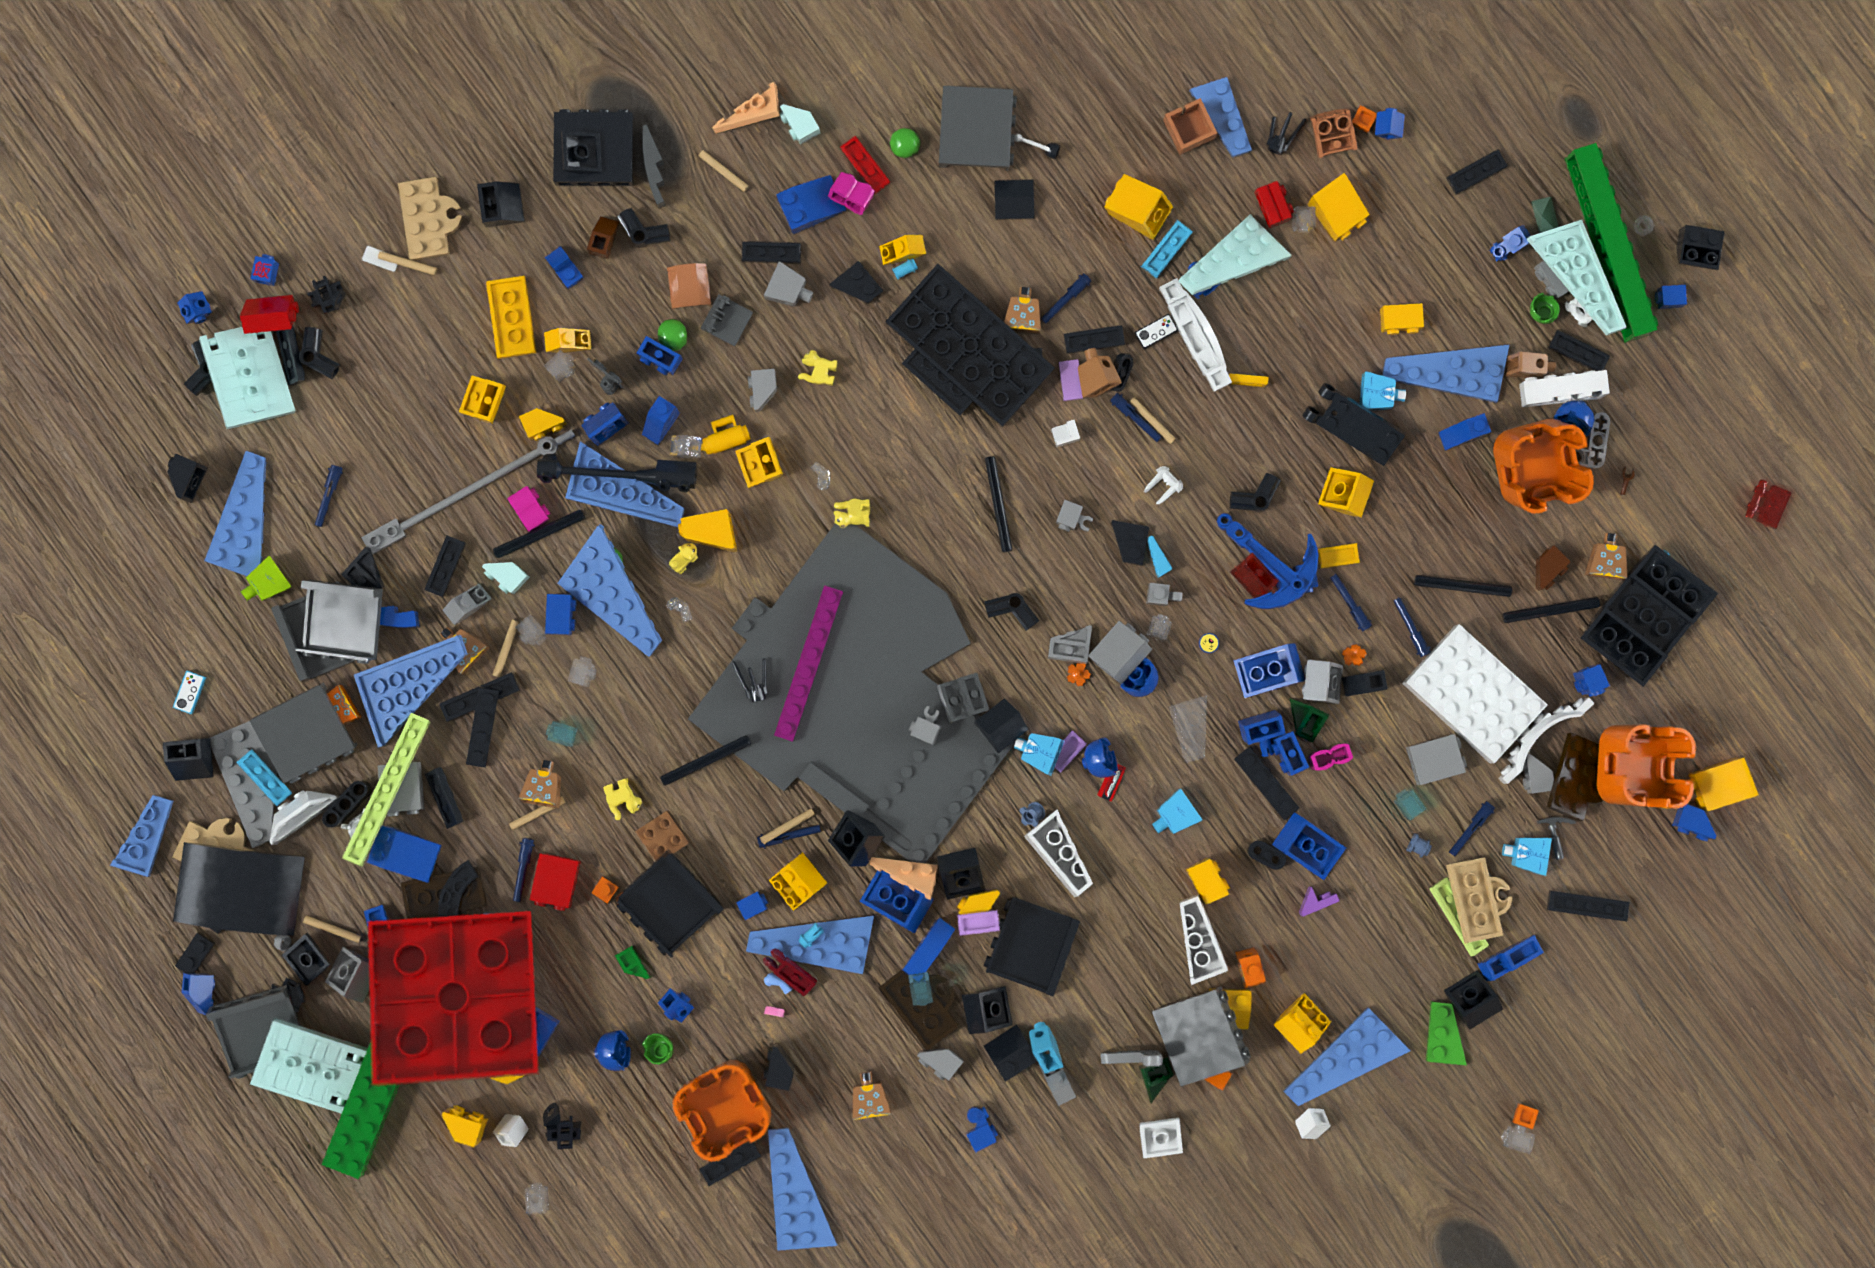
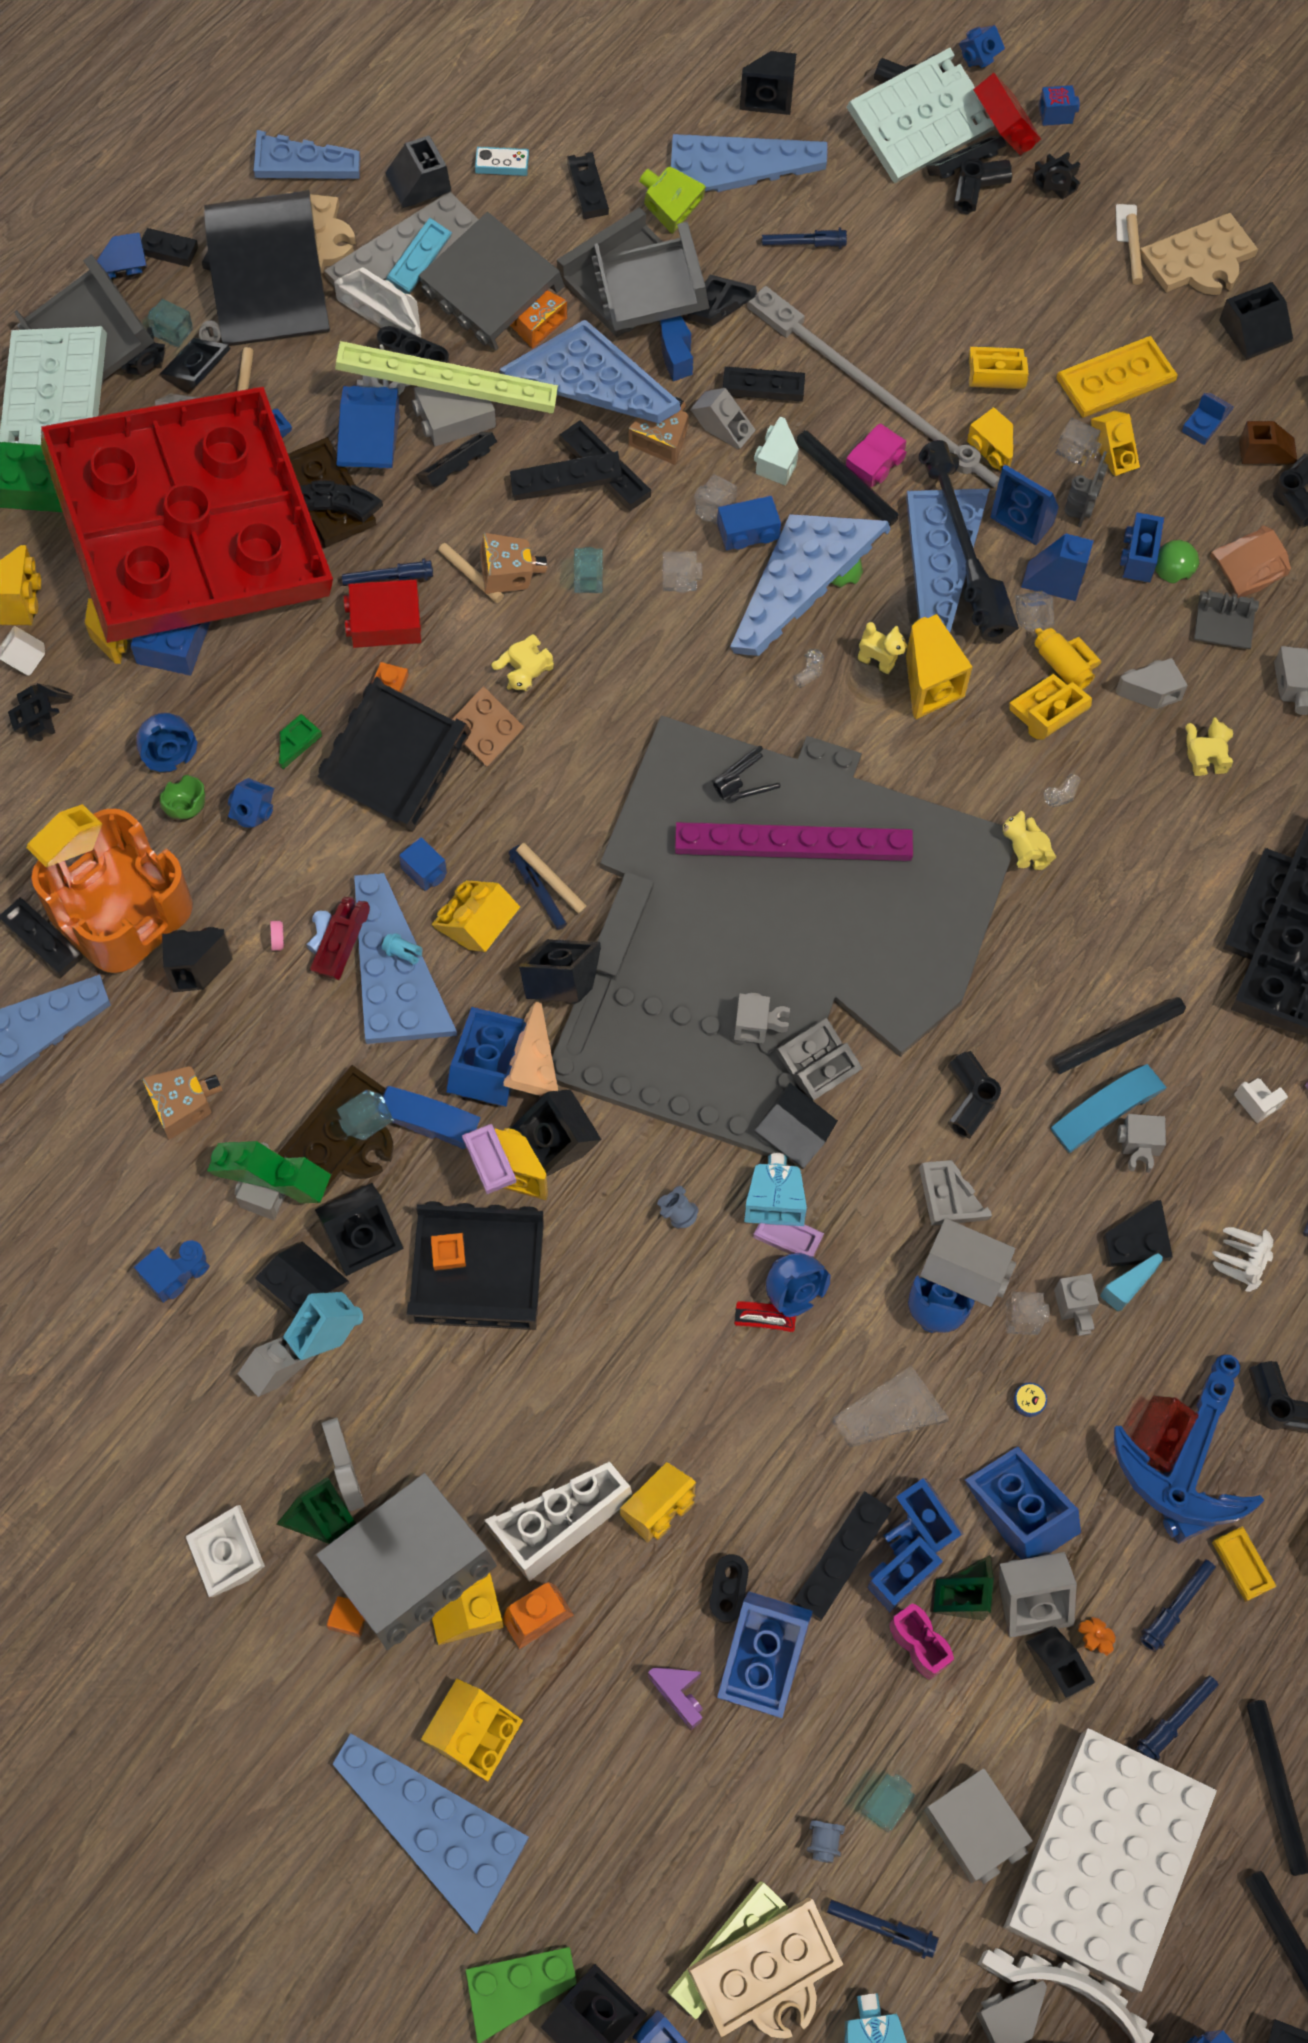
camera: 70 degrees right, 20 degrees down
(231, 636) = (587, 186): none -> black plate
(266, 969) = (170, 322): none -> clear light blue brick
(505, 648) = (674, 480): tan bar -> none
(690, 1134) = (66, 836): none -> yellow slope
(705, 760) = (611, 751): black axle -> none
(940, 1057) = (260, 1166): none -> green arch
(1020, 960) = (448, 1251): none -> orange plate
(1043, 528) = (1107, 1106): none -> dark azure slope
(1060, 854) = (637, 1256): white wedge -> none
(1077, 674) = (911, 1219): orange plant -> none
(1176, 813) = (748, 1424): medium azure torso -> none
(1312, 1123) = (309, 1798): white panel -> none

